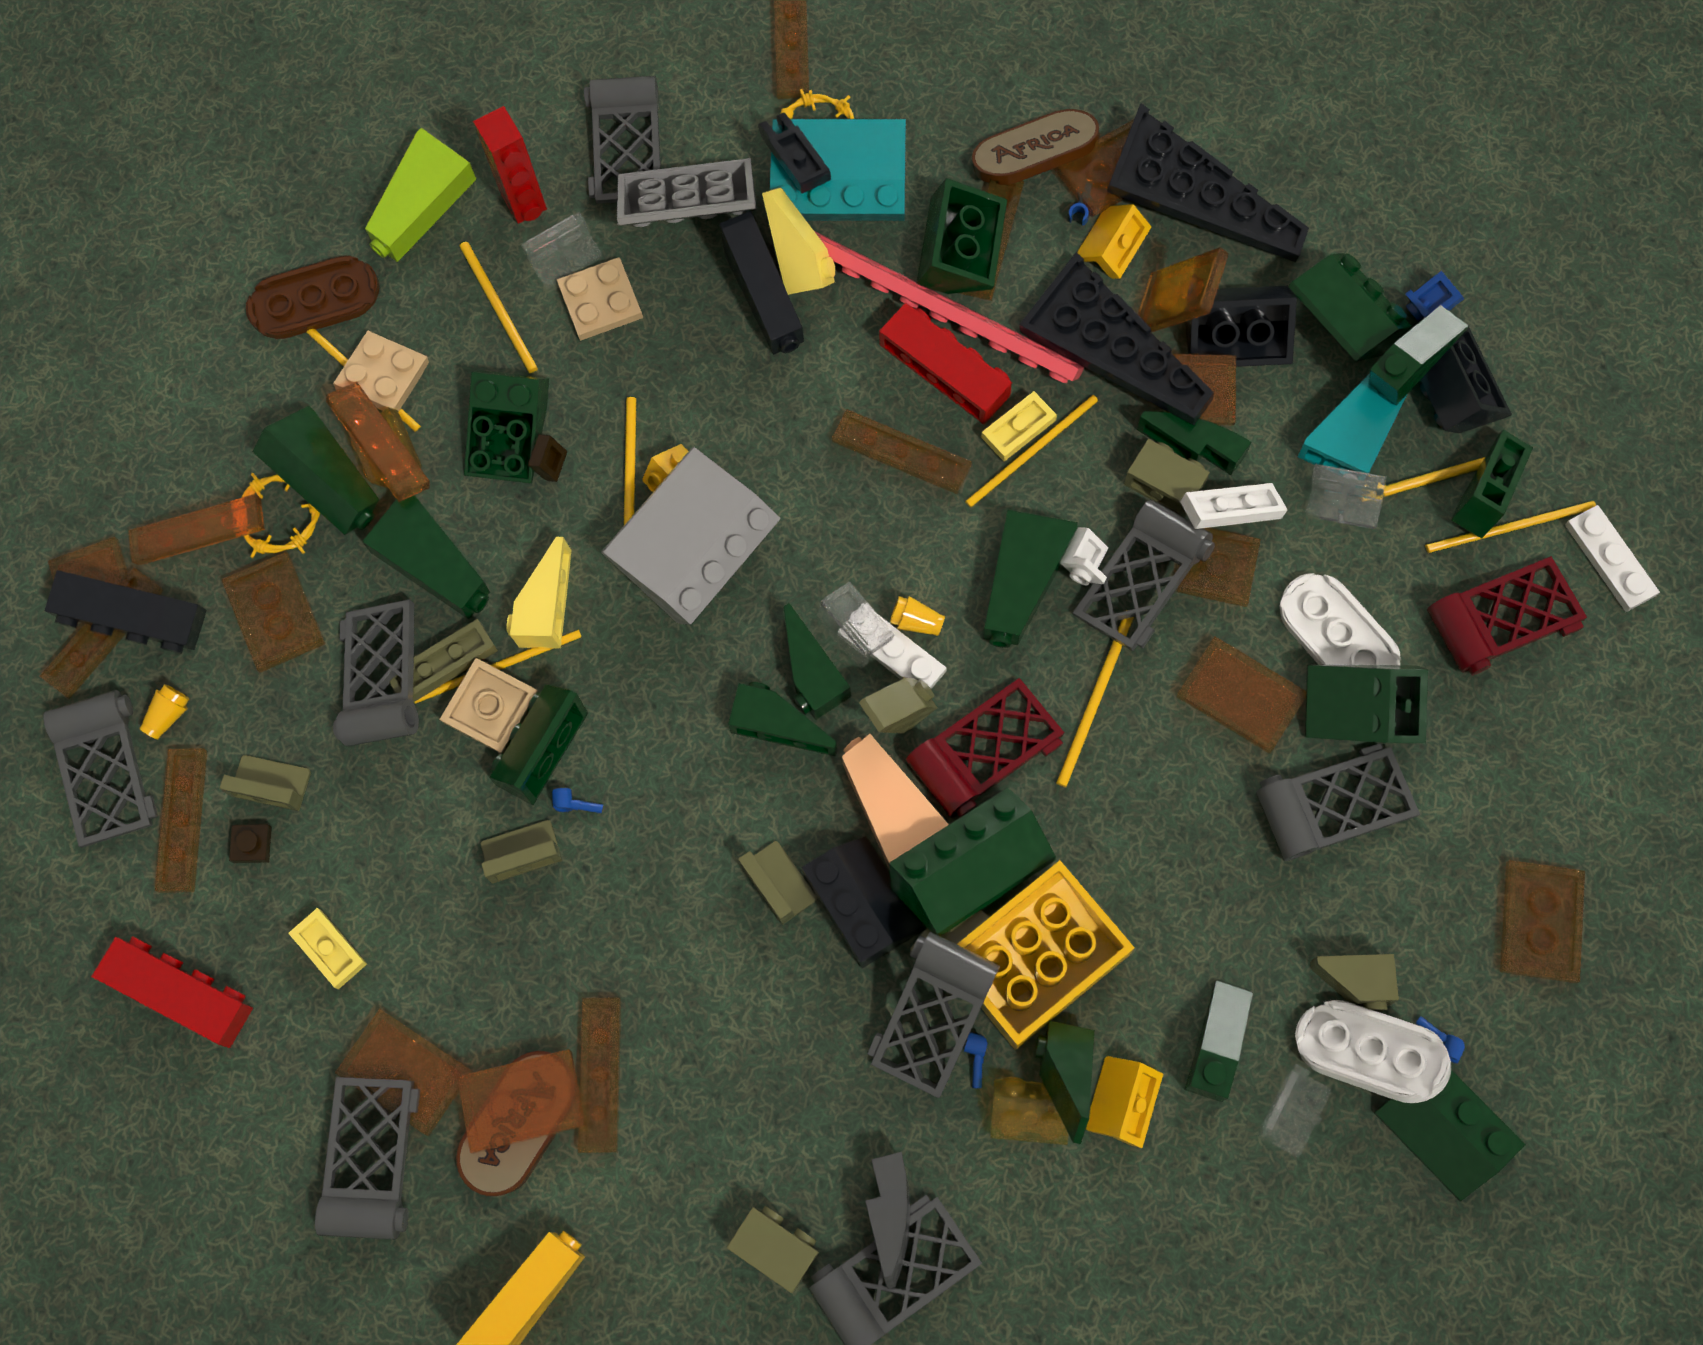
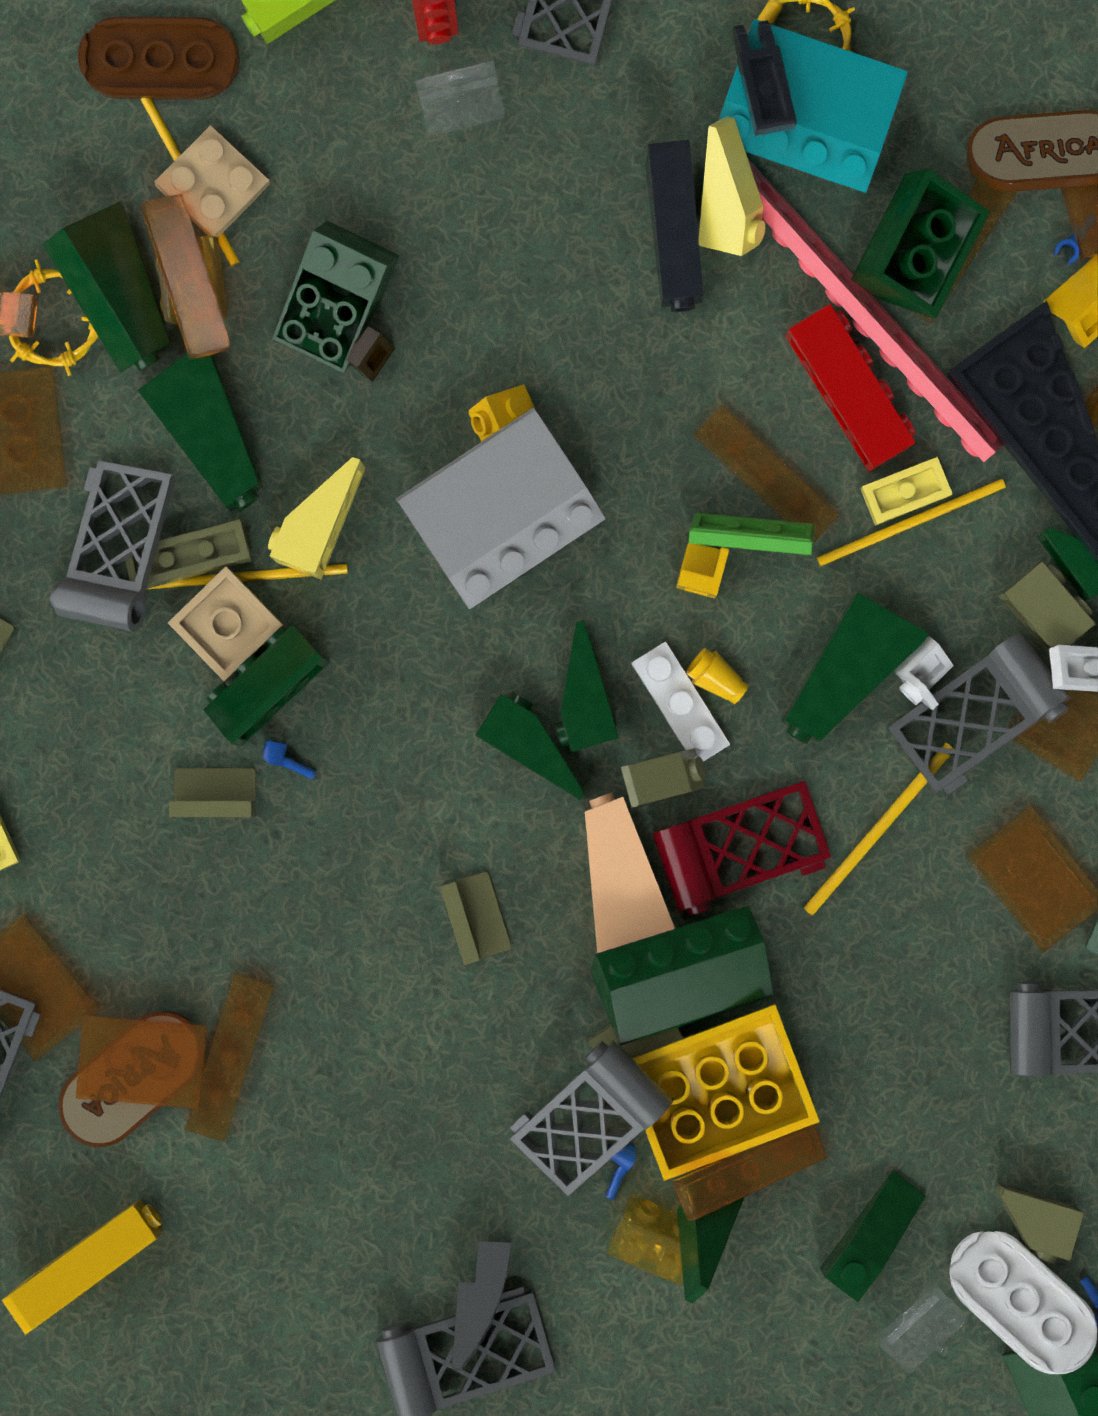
camera: 15 degrees right, 15 degrees up
(498, 307) = (367, 141): yellow axle -> none
(599, 298) = (485, 171): tan plate -> none
(630, 448) = (459, 390): yellow axle -> none
(685, 193) = (622, 86): light grey slope -> none
(773, 1248) = (353, 1291): olive brick -> none
(853, 624) = (647, 665): clear panel -> none
(860, 900) = (553, 968): black slope -> none
(875, 539) = (702, 569): none -> yellow panel
(905, 494) = (752, 533): none -> bright green tile
(1089, 1013) = (747, 1172): none -> clear orange tile
(1124, 1100) = (754, 1261): yellow panel -> none

